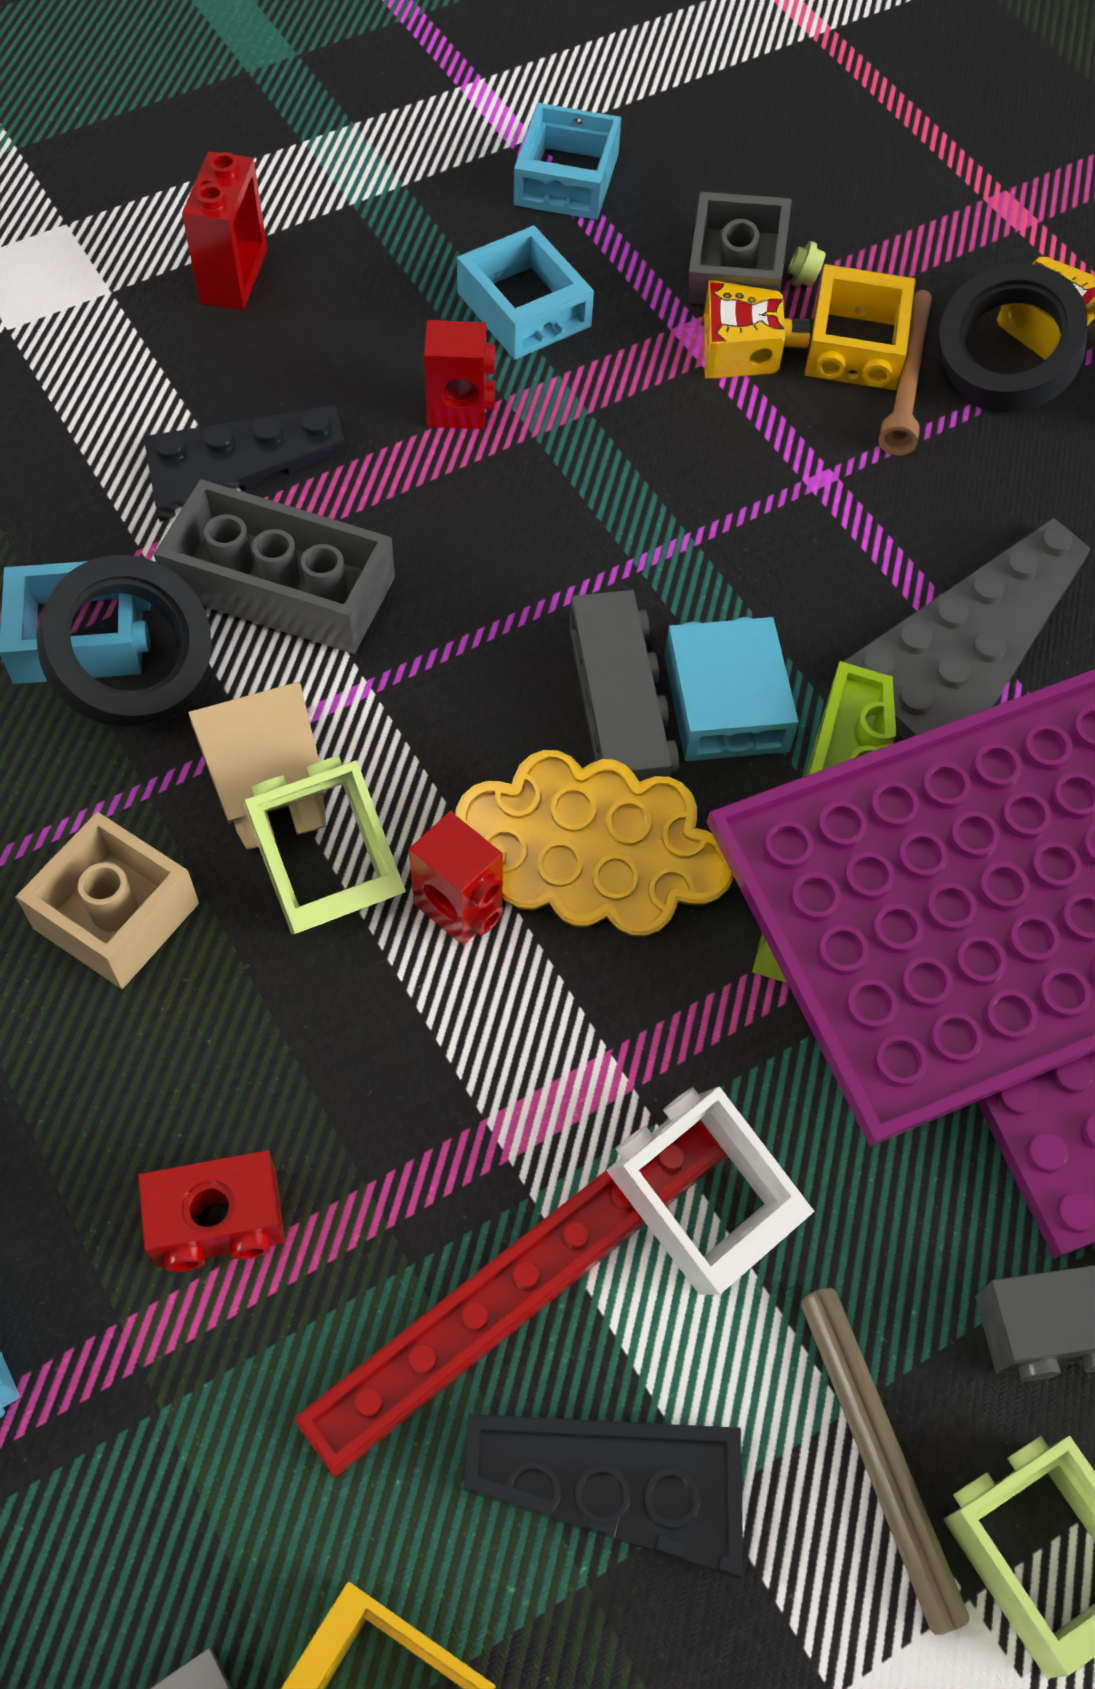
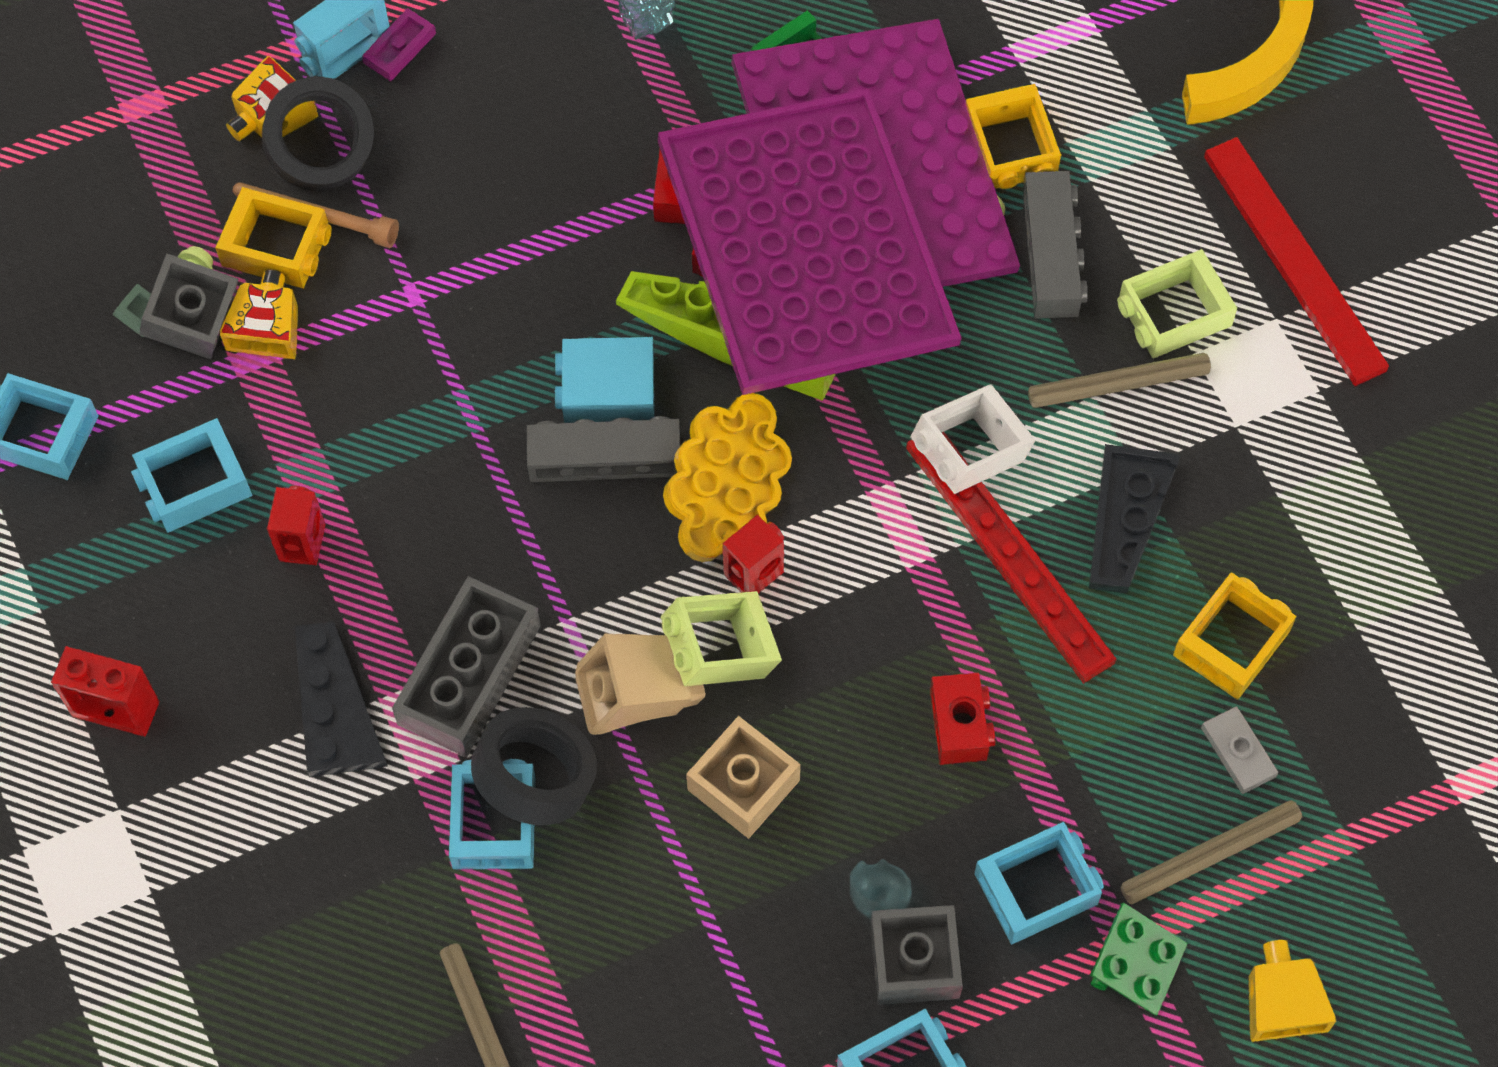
camera: 80 degrees left, 5 degrees up
(973, 637) = (579, 226): dark grey wing -> none

